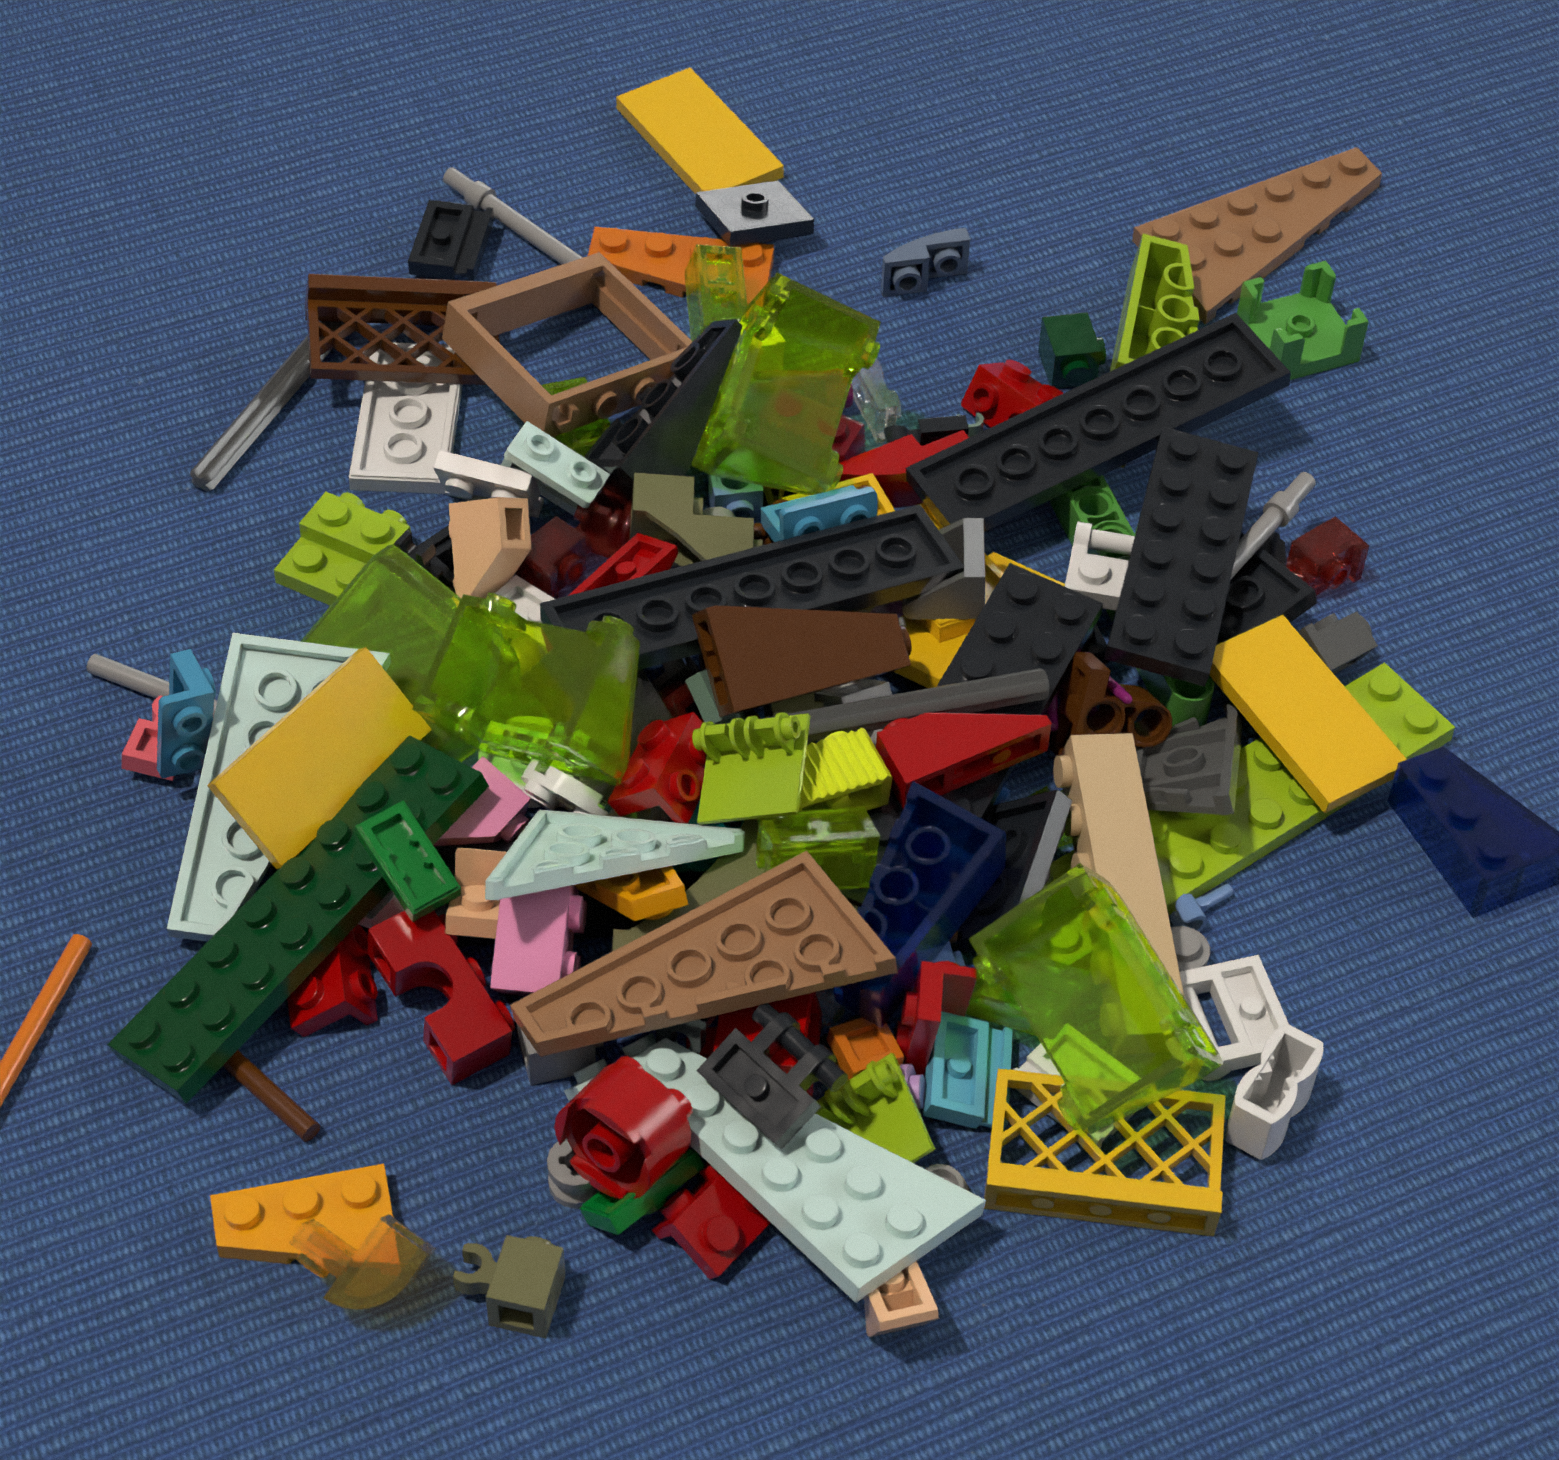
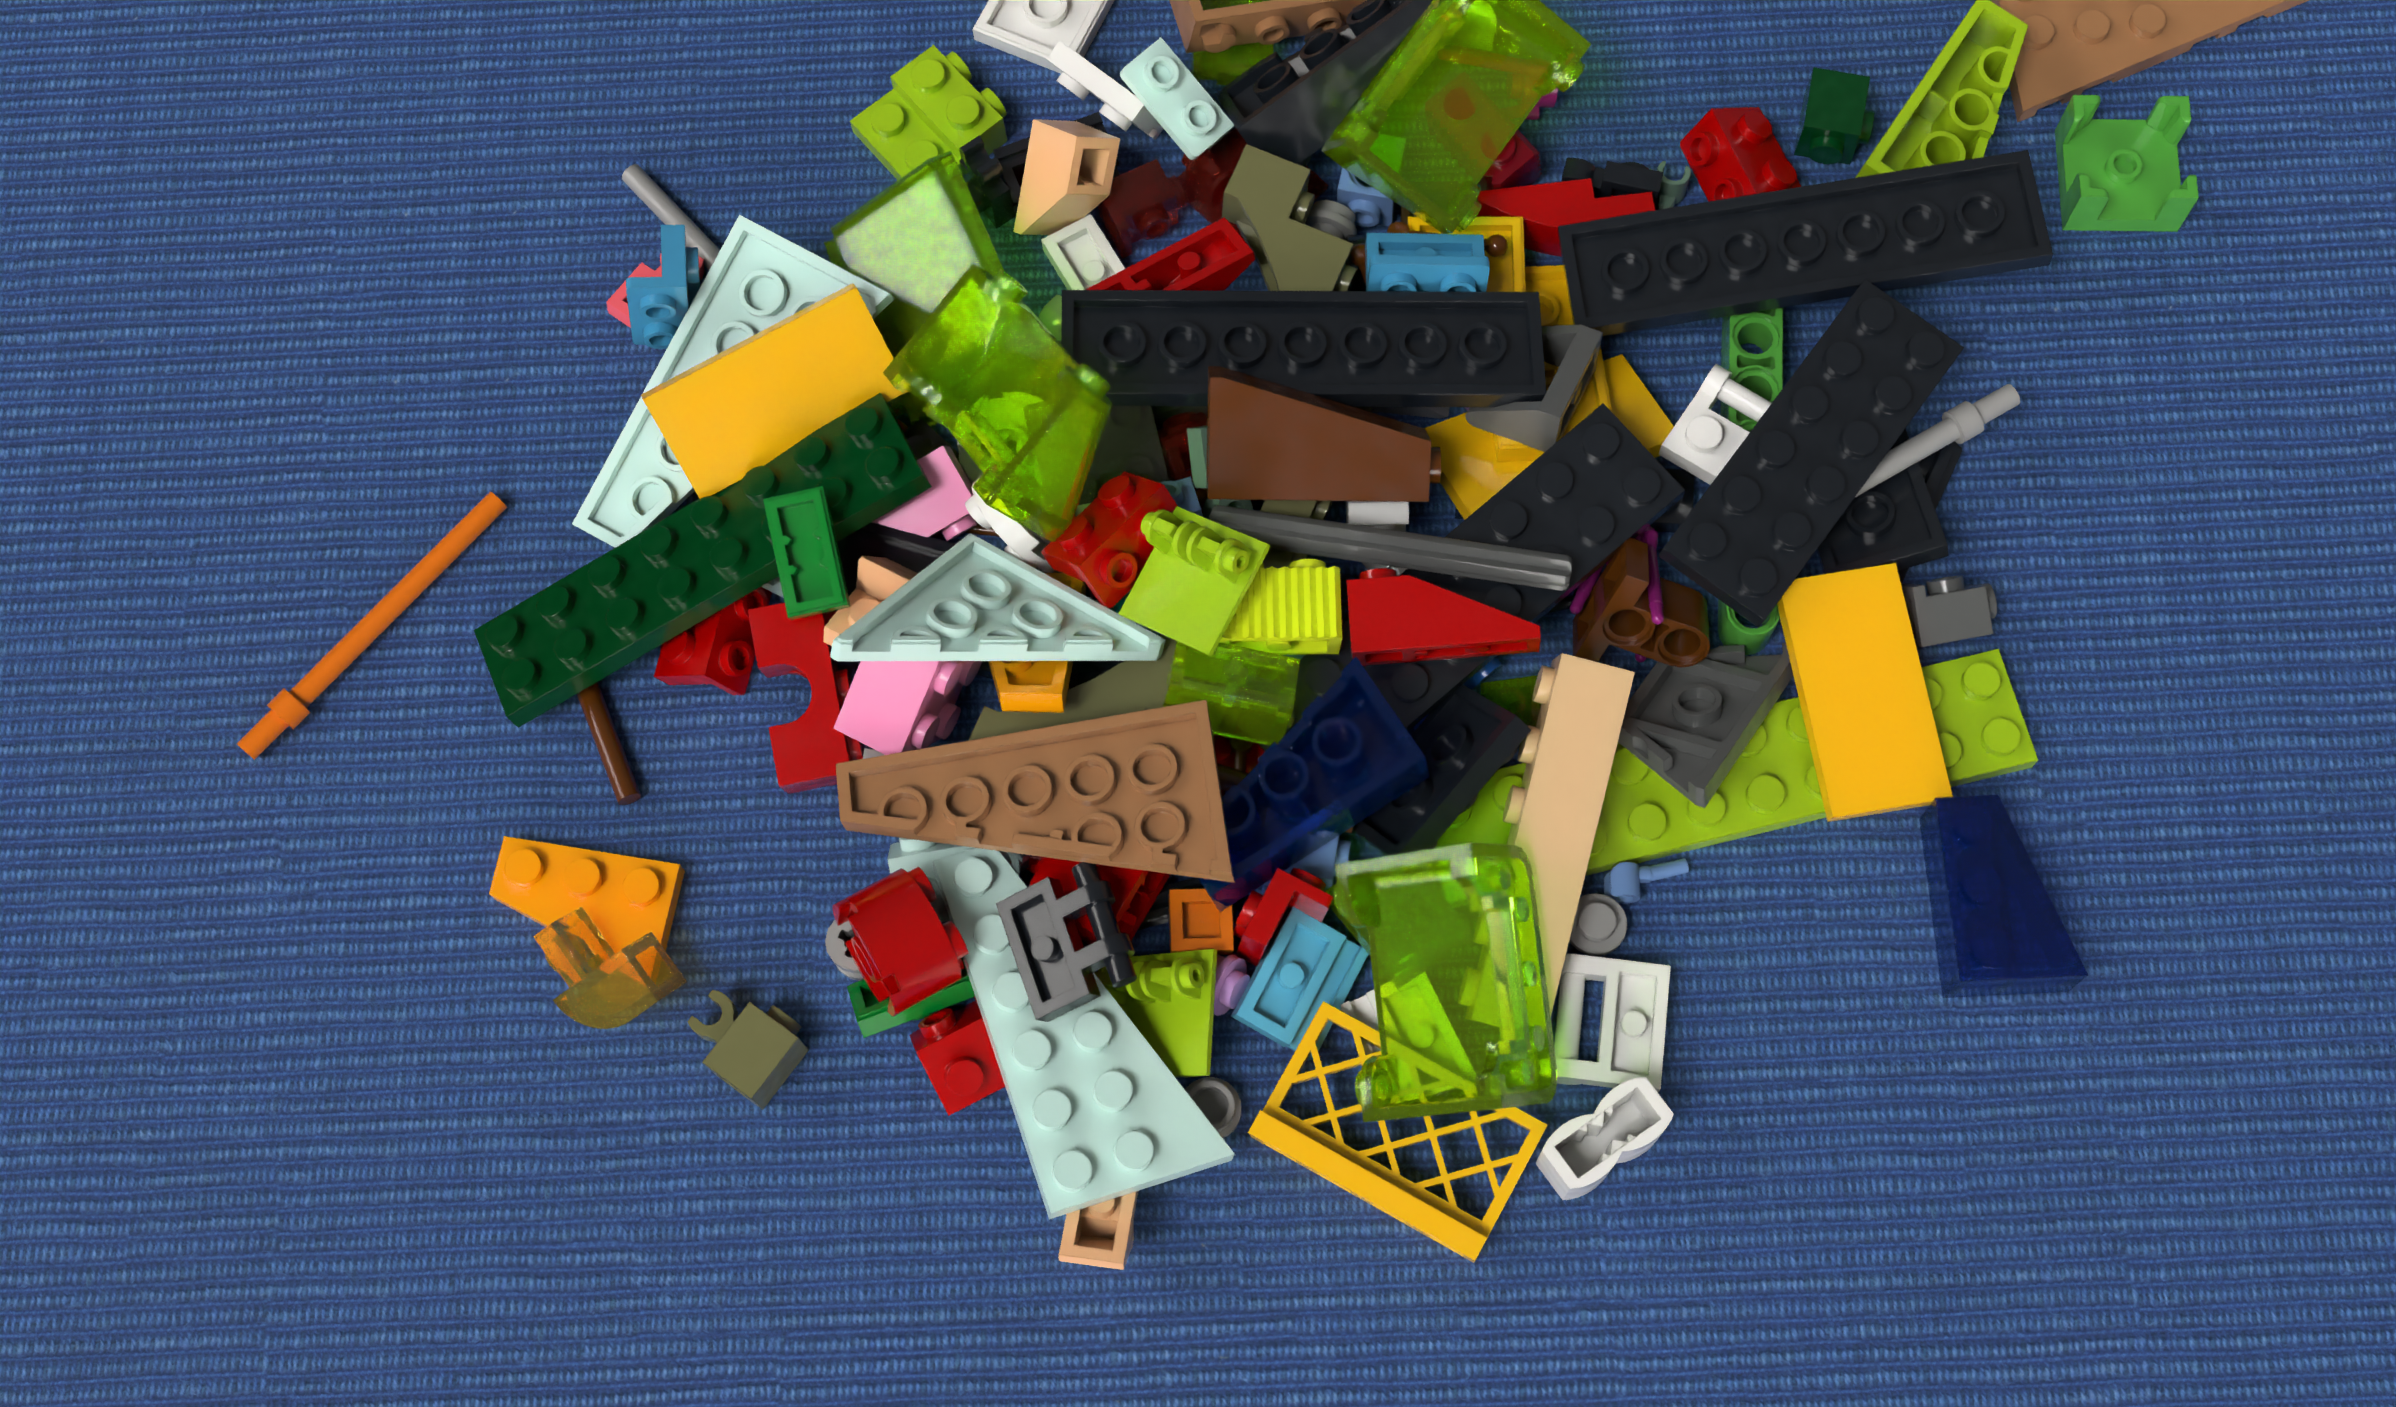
camera: 30 degrees right, 20 degrees up
(875, 401) = (1582, 120): clear plate -> none
(1328, 556) = (1995, 492): clear red brick -> none

